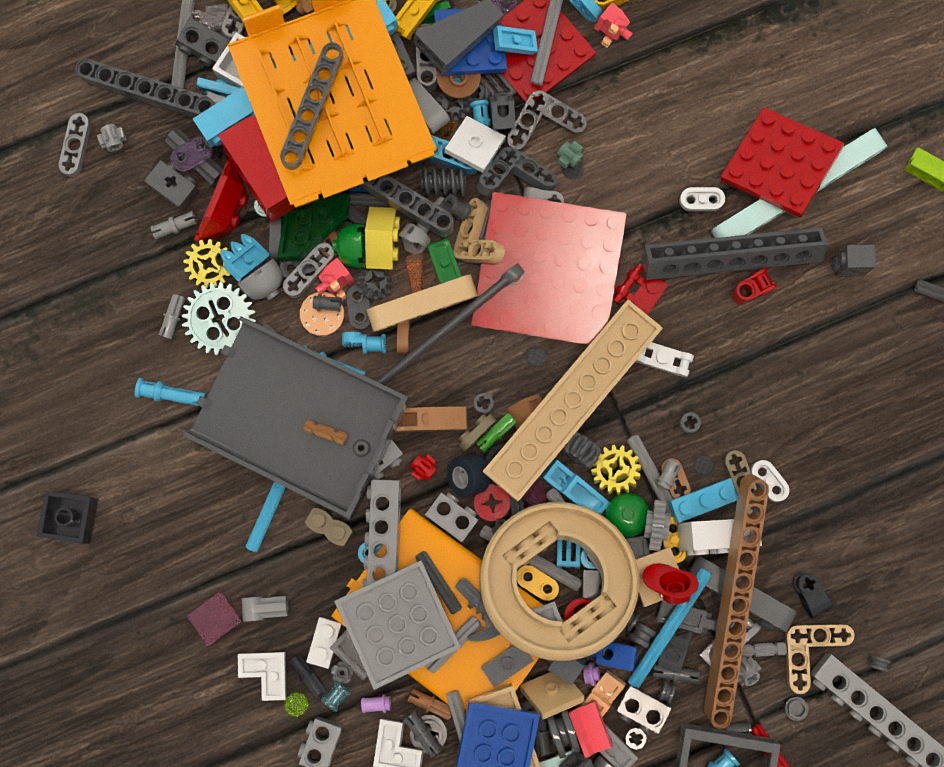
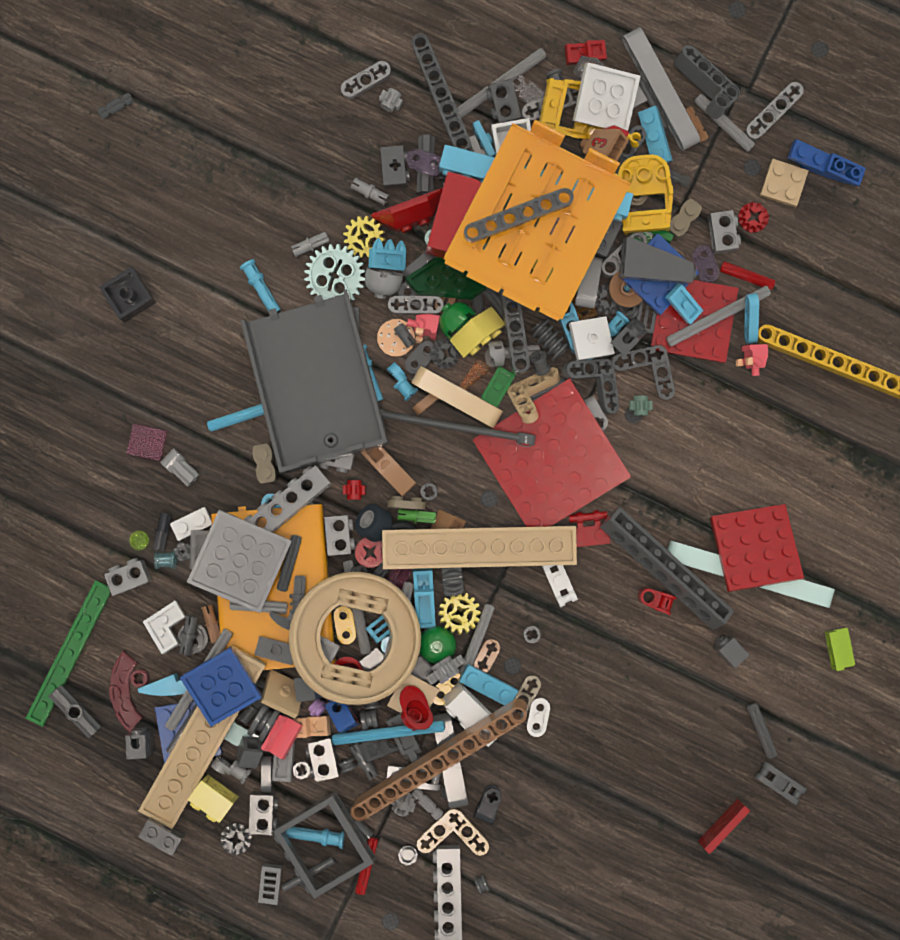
camera: 50 degrees right, 5 degrees up
(270, 668) = (146, 504): white plate -> none
(325, 432) = (320, 409): medium nougat axle -> none
(376, 704) = (182, 589): lavender pin -> none
(668, 475) = (484, 649): light grey pin -> none
(701, 199) = (686, 516): white plate -> none

